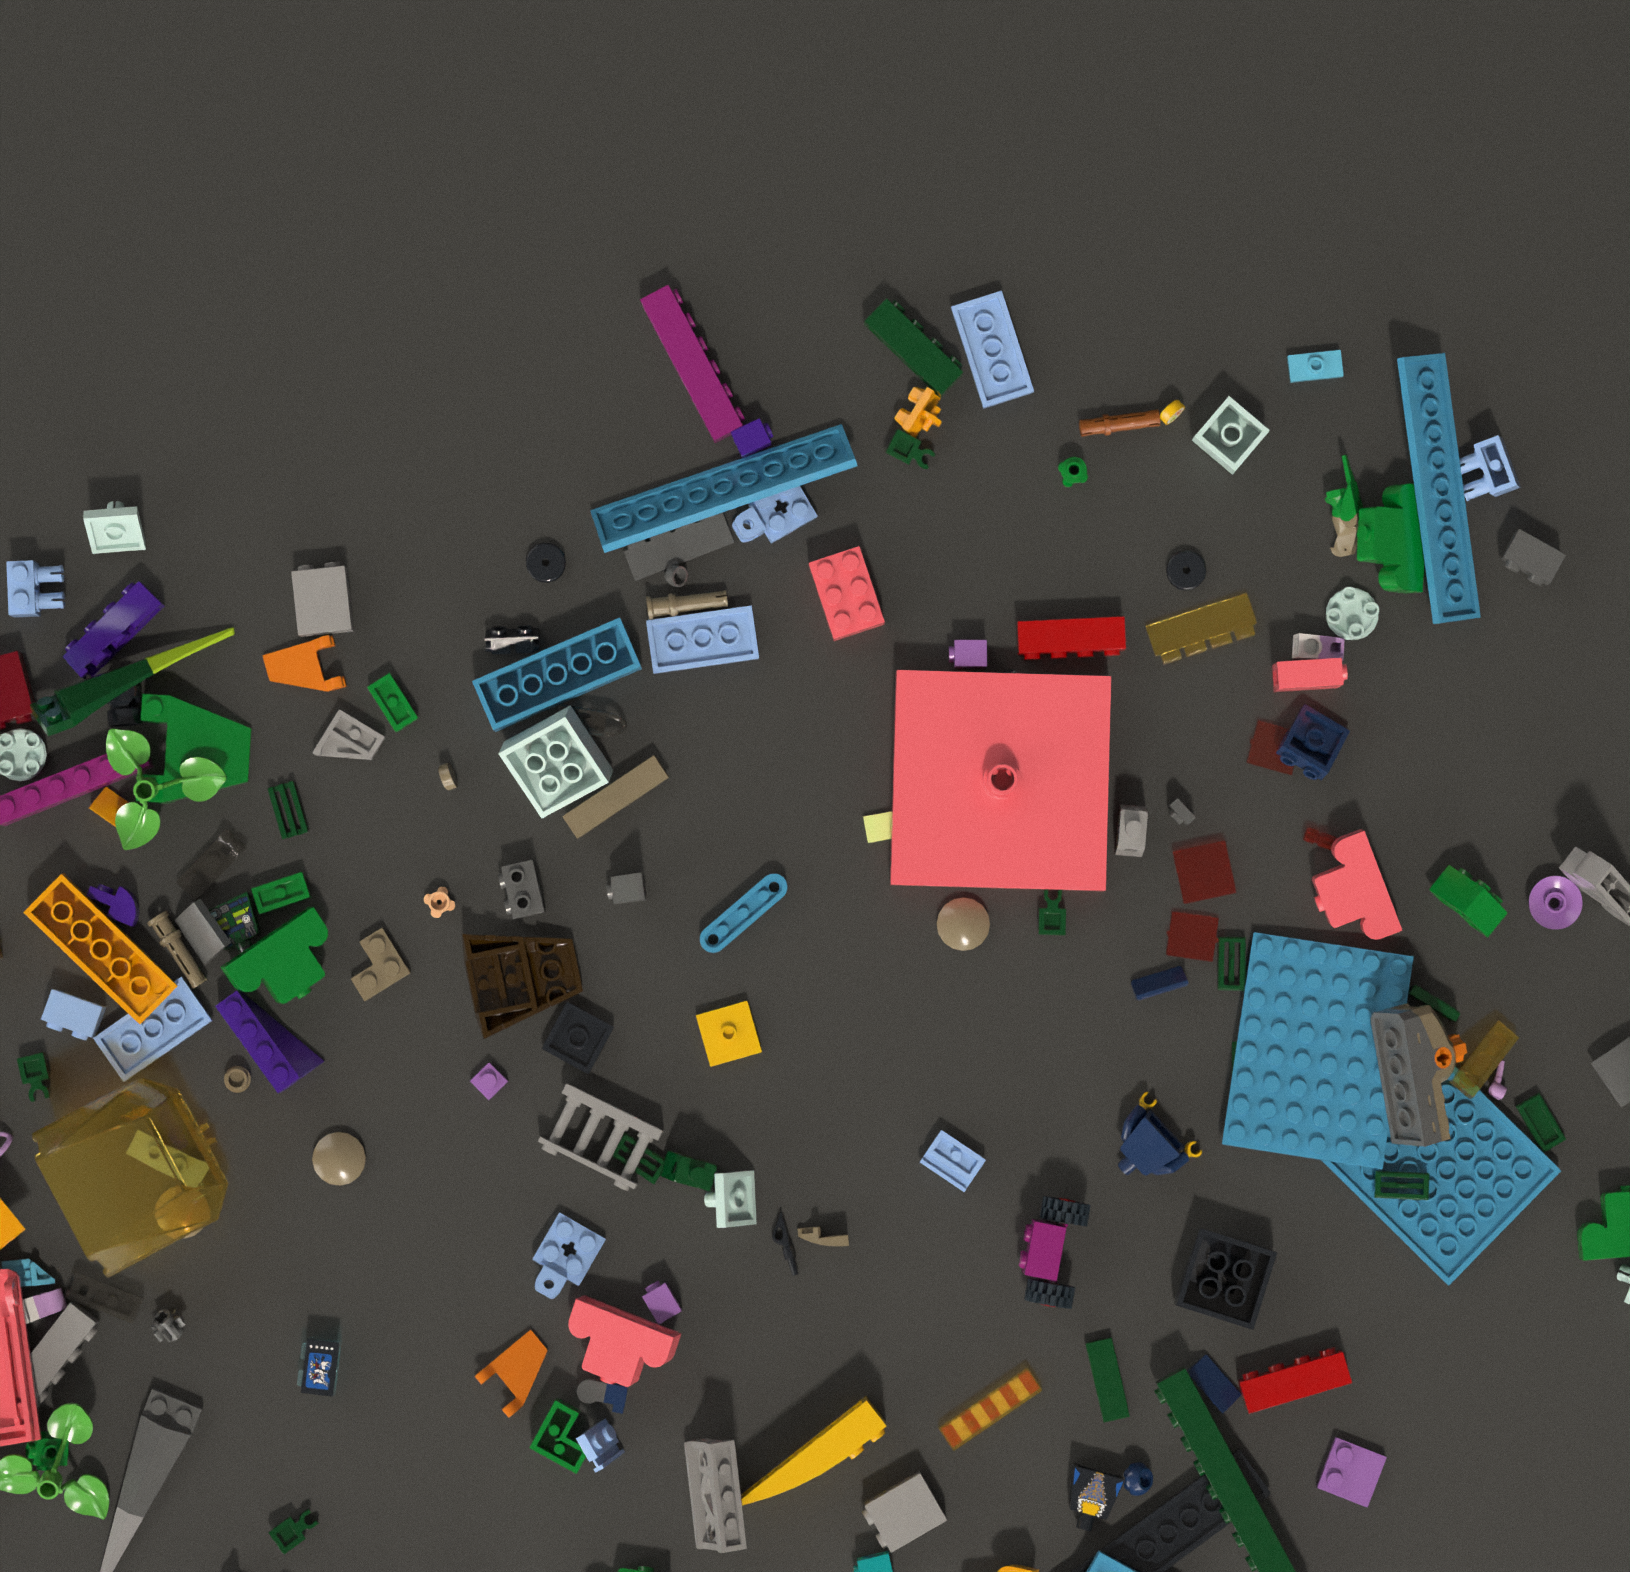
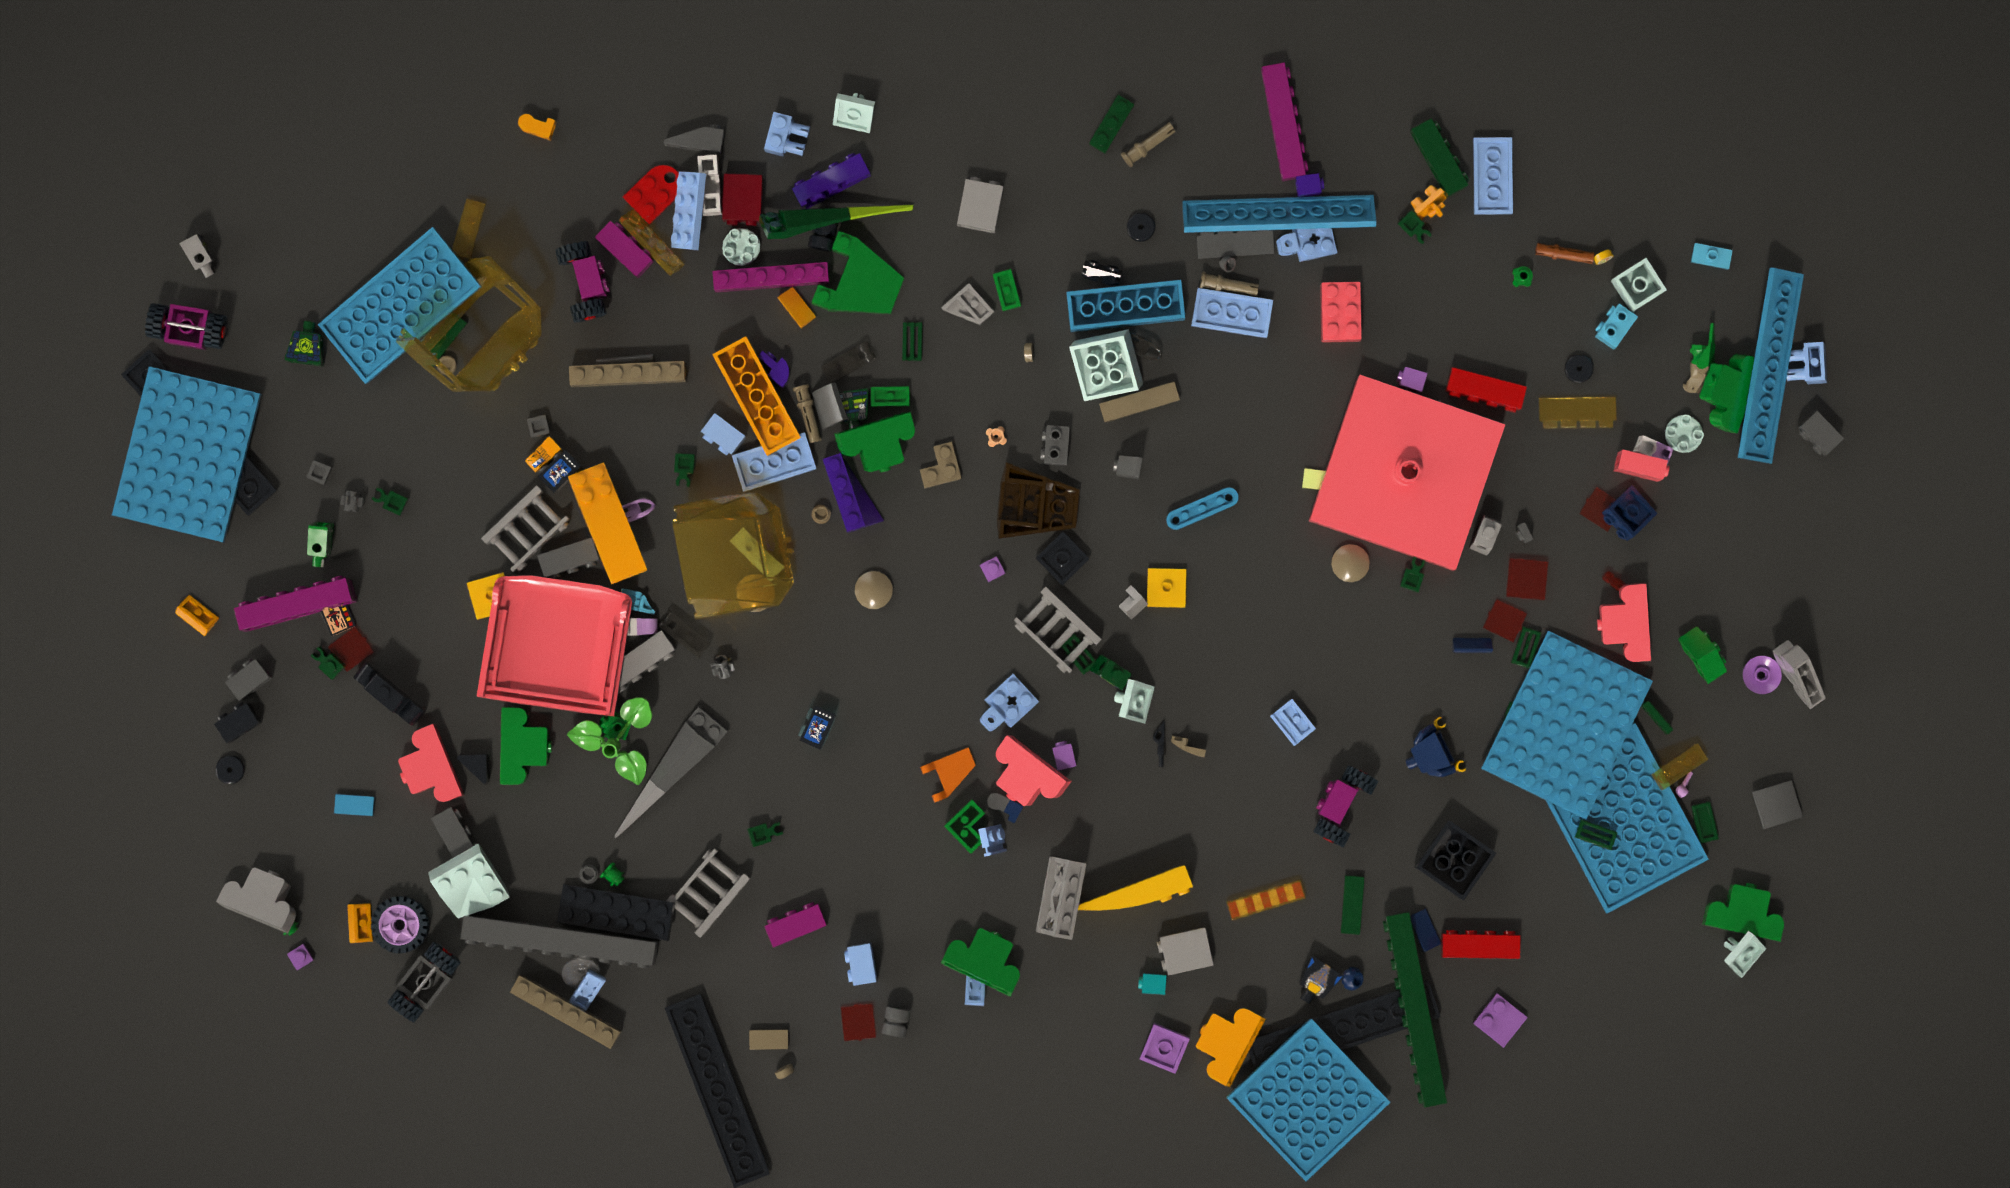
camera: 25 degrees right, 0 degrees up
(134, 822) = (815, 267): bright green plant -> none
(301, 666) = (951, 246): orange flag -> none
(464, 437) = (1111, 124): none -> dark green plate
(514, 459) = (1141, 149): none -> dark tan pin
(690, 1069) = (1133, 604): none -> light grey panel
(1217, 498) = (1616, 325): none -> medium azure brick
(1412, 1064) = (1630, 751): dark grey piece -> none

